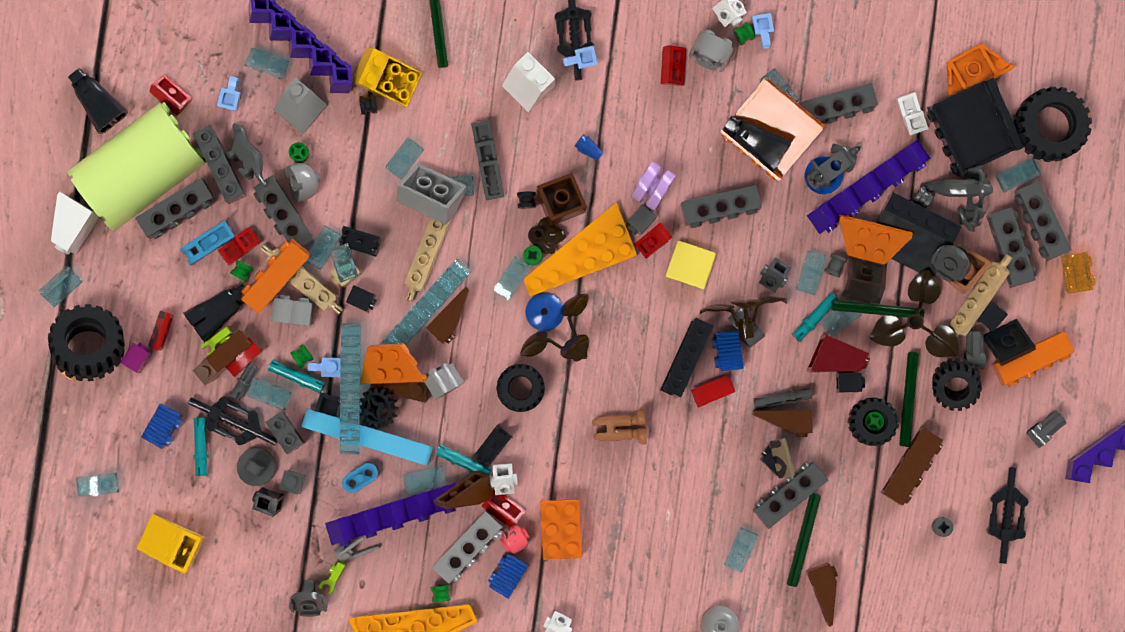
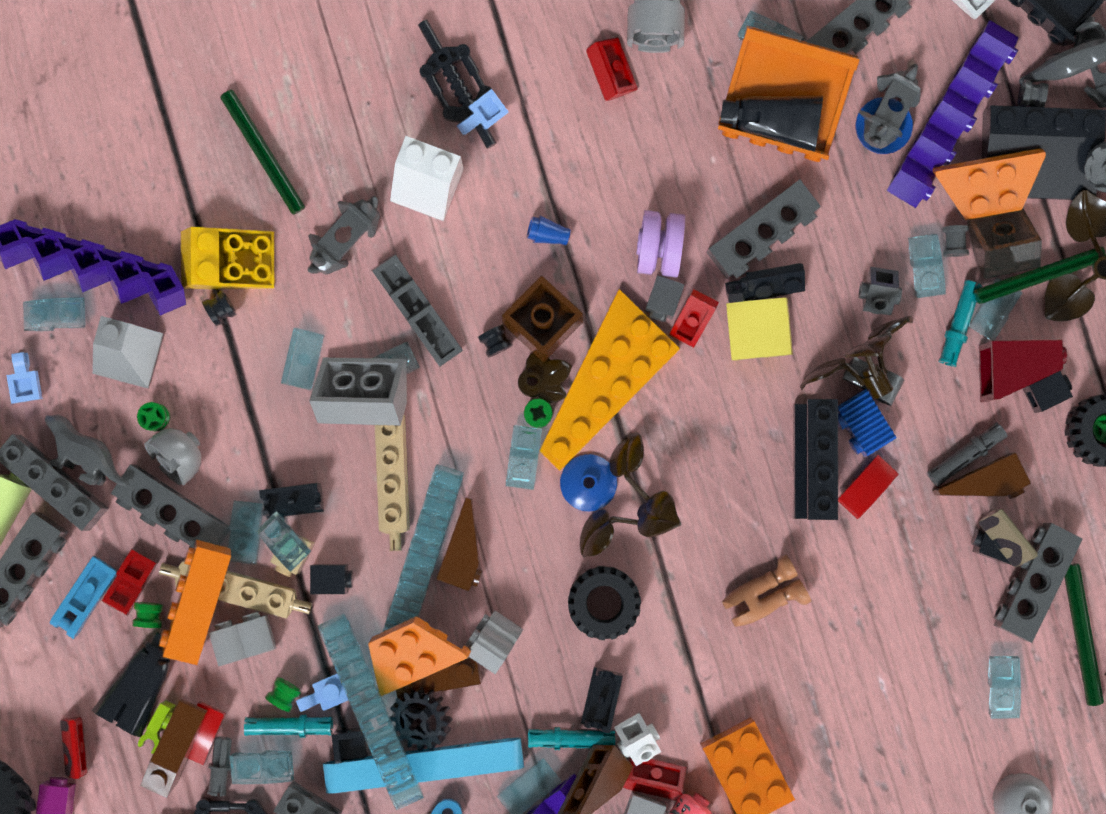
camera: 25 degrees left, 0 degrees up
(449, 100) = (327, 251): none -> dark grey piece
(708, 239) = (767, 283): none -> black hinge

